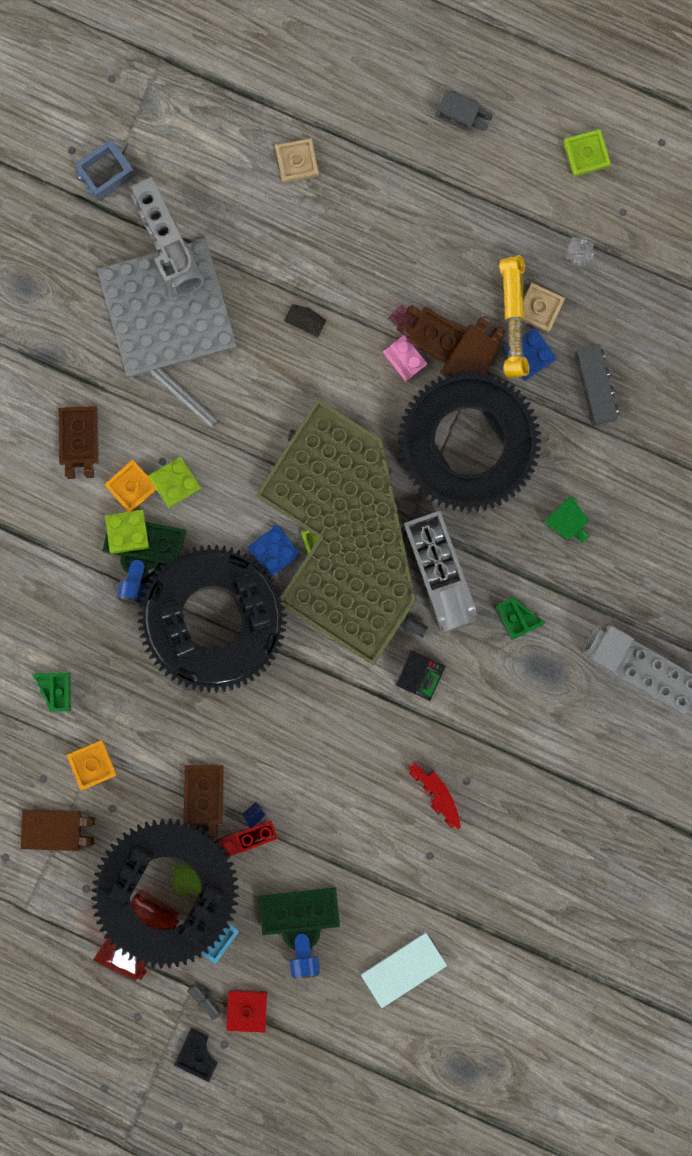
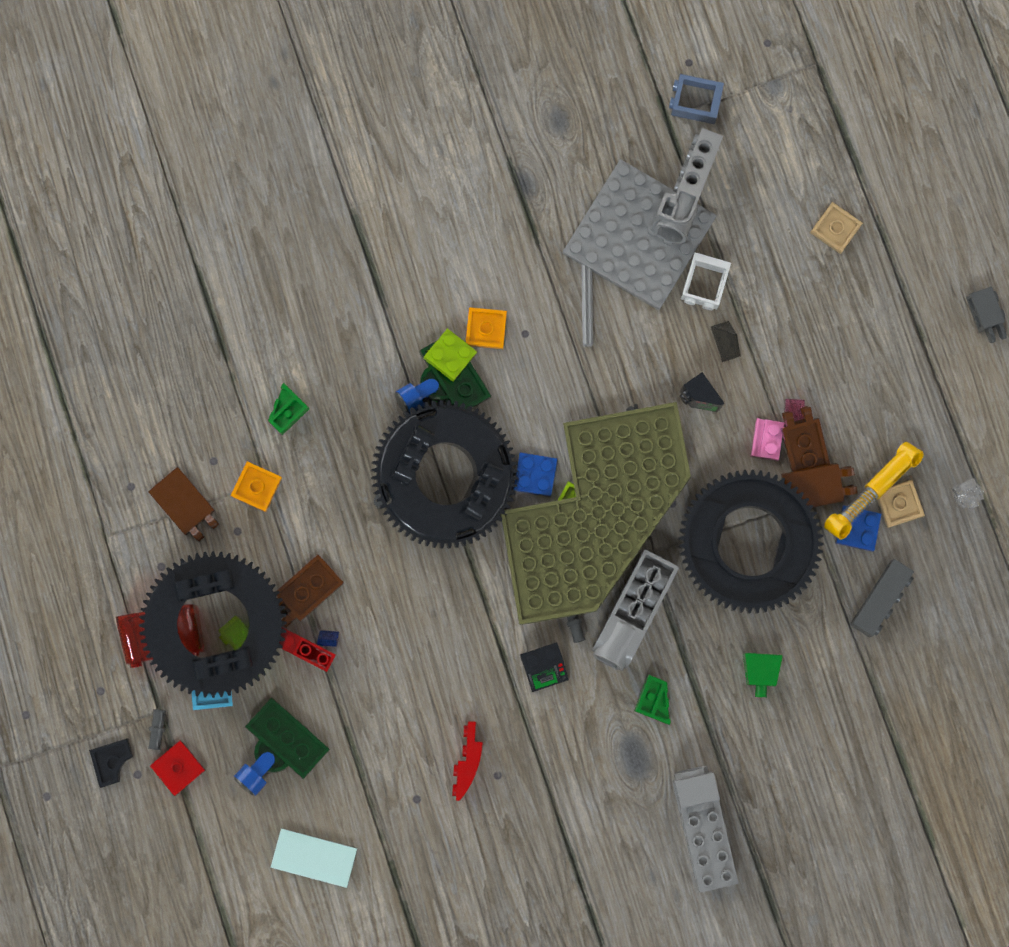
camera: 45 degrees right, 5 degrees down
(78, 439) = (484, 259): reddish brown tile -> none
(174, 482) = (518, 356): lime plate -> none
(239, 276) = (711, 264): none -> white window
(328, 375) = (700, 394): none -> black slope

